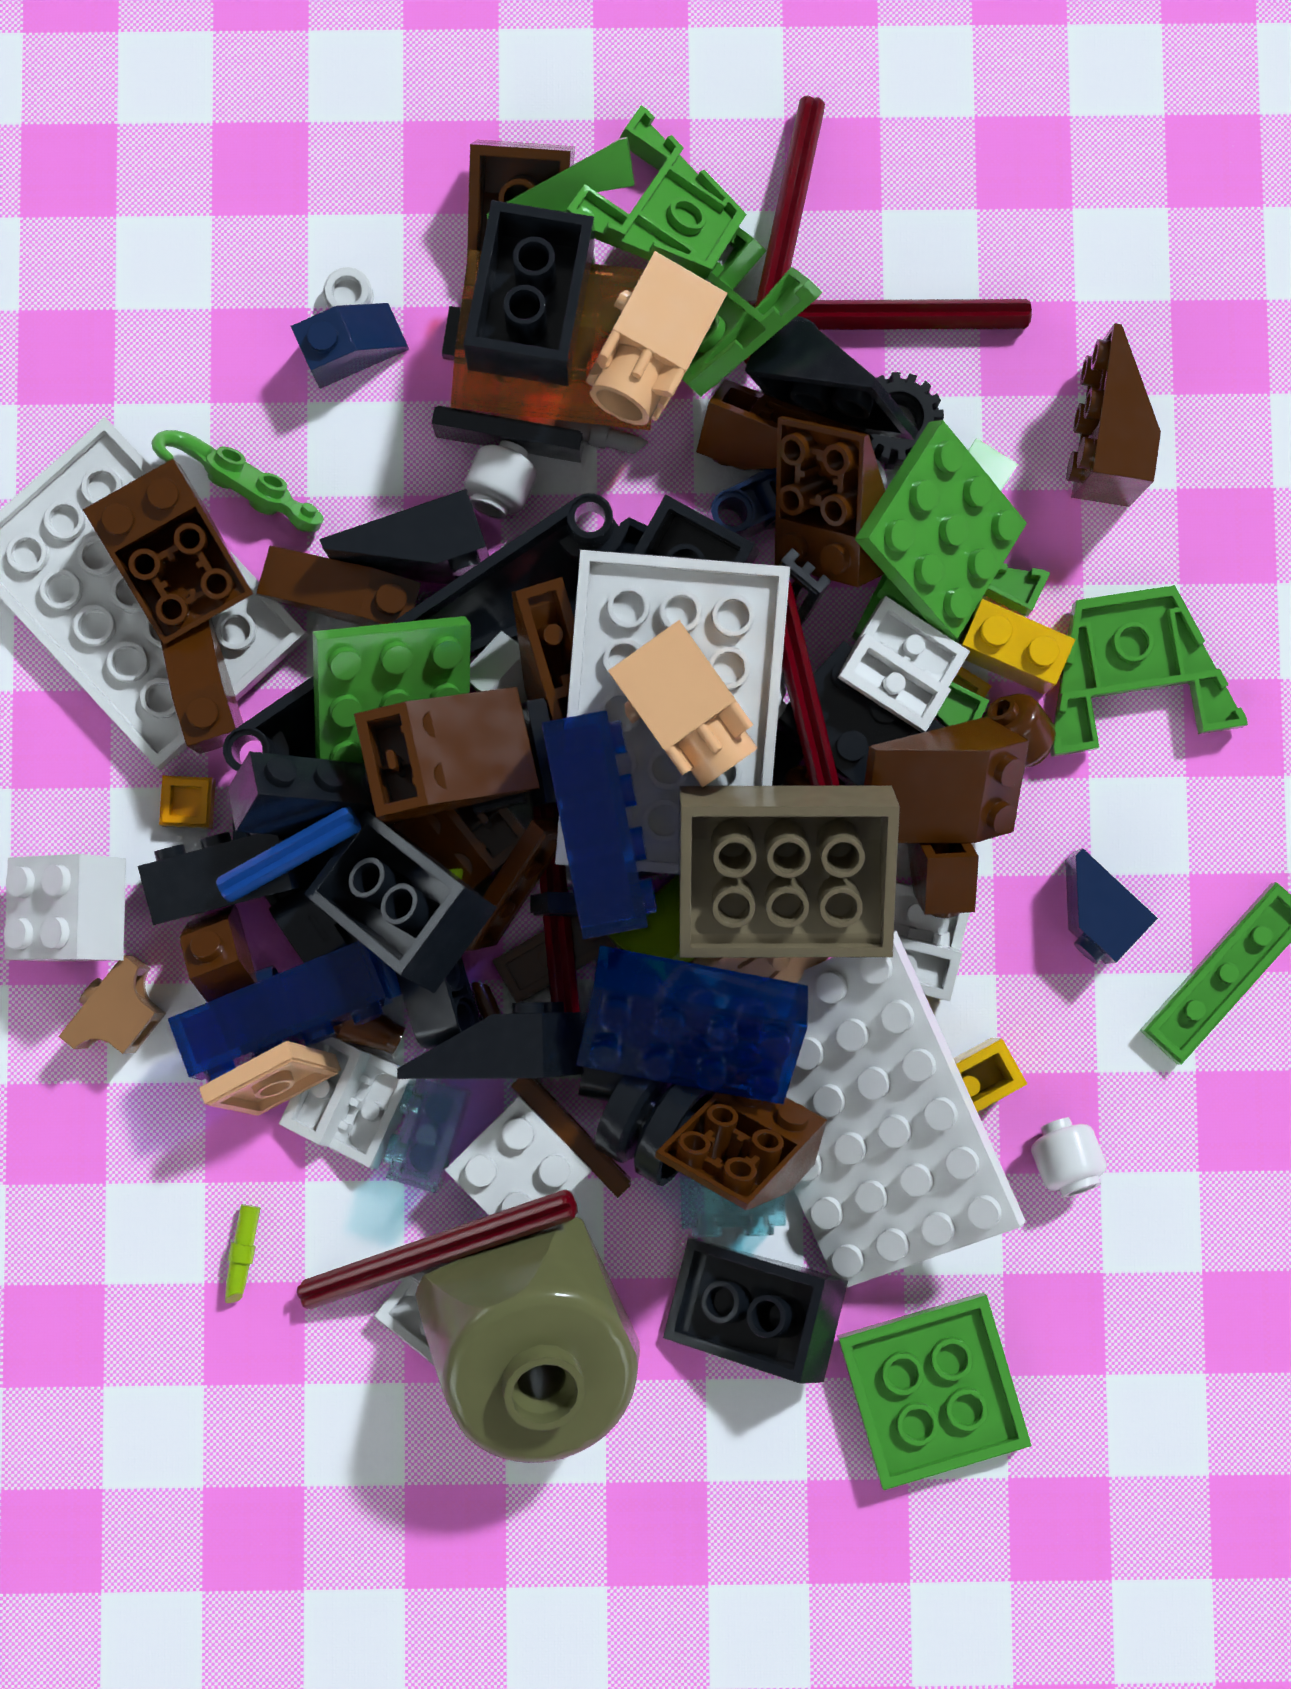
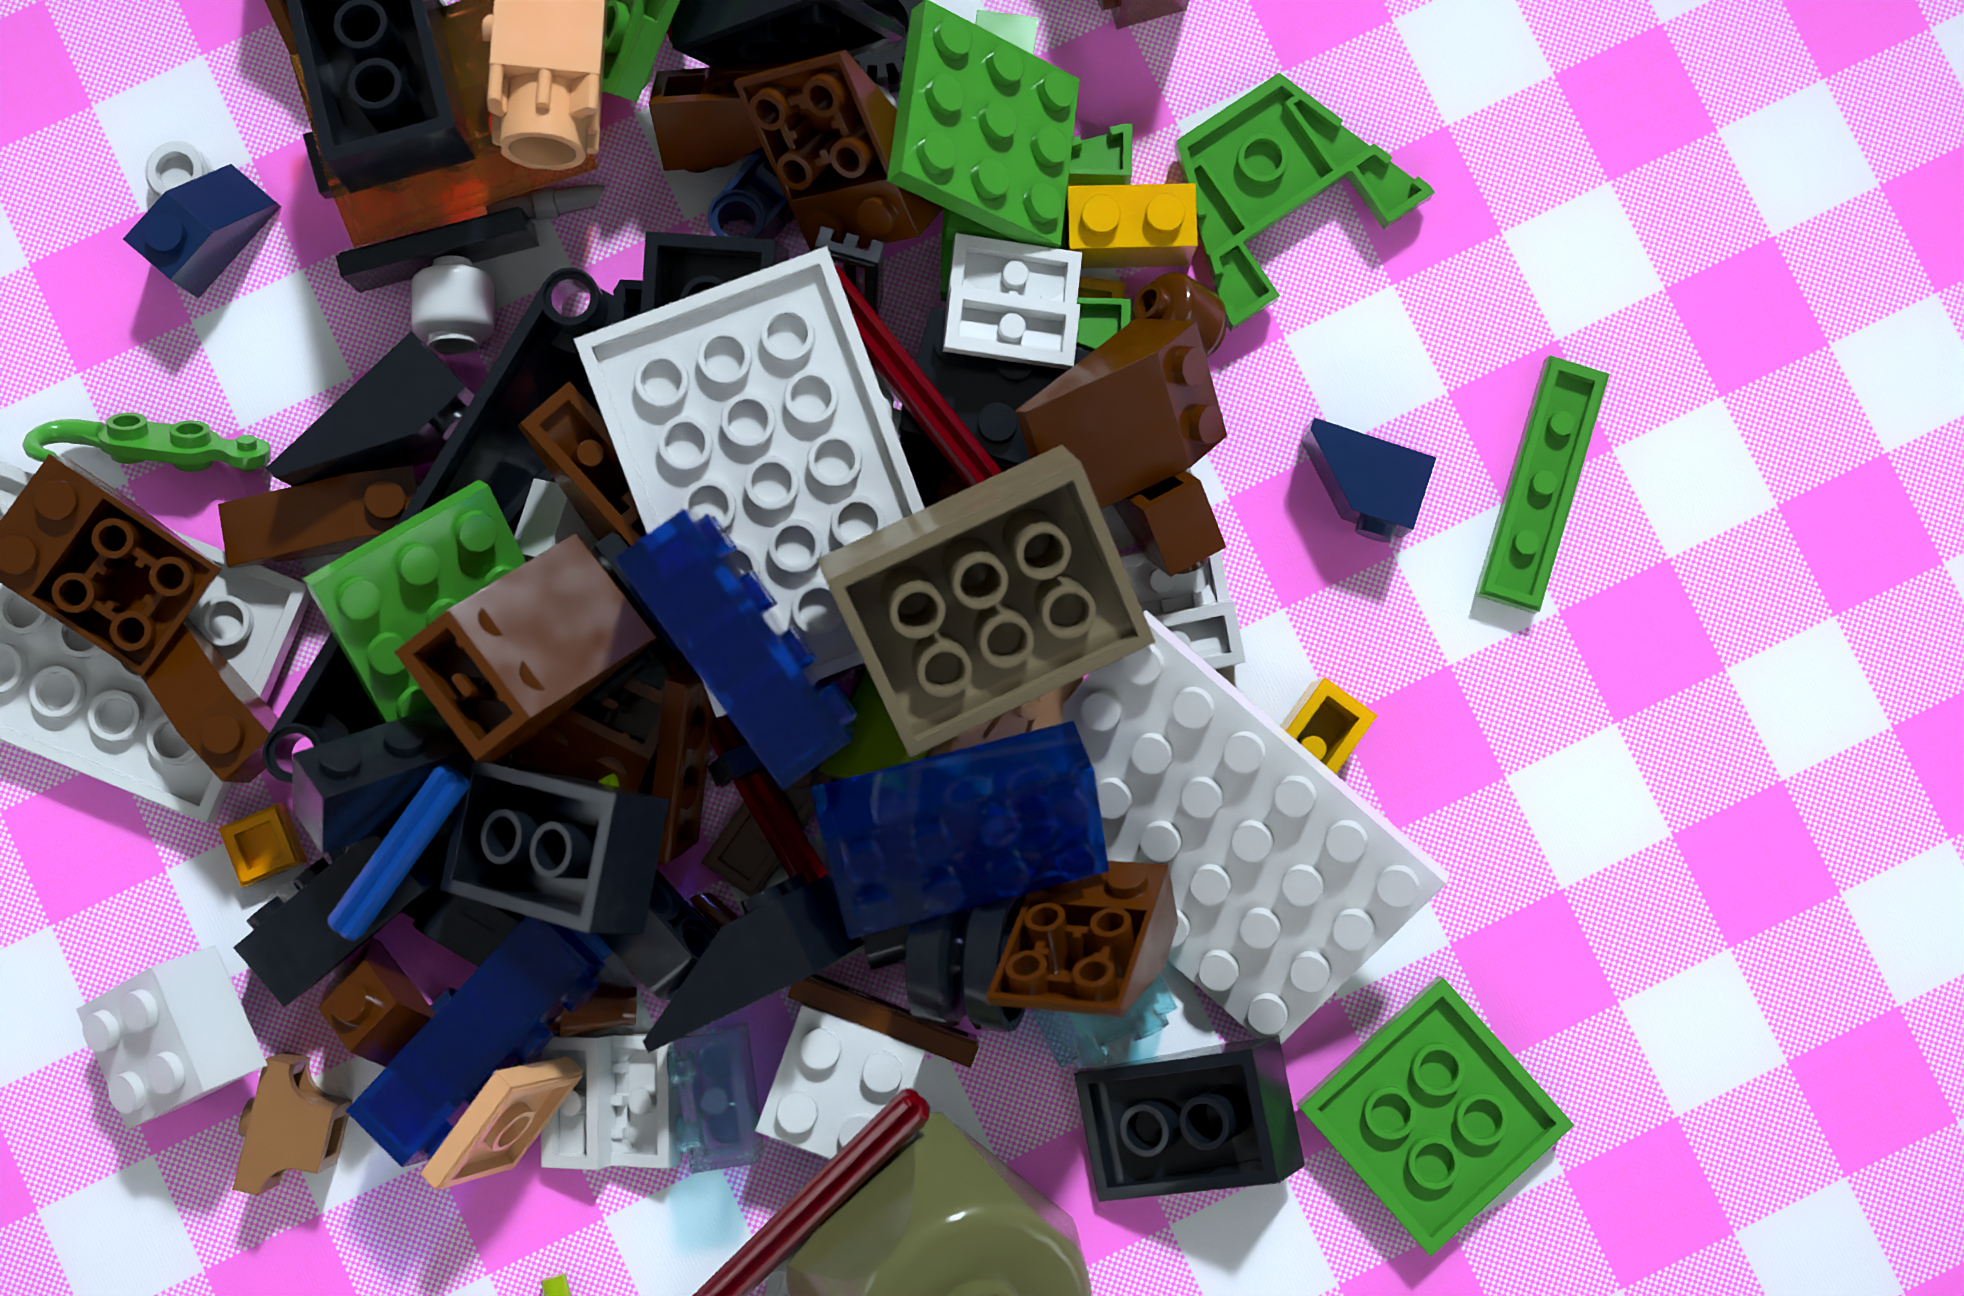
camera: 25 degrees left, 0 degrees up
(684, 705) = (776, 461): light nougat piece -> none
(1069, 1157) = (1463, 777): white head -> none

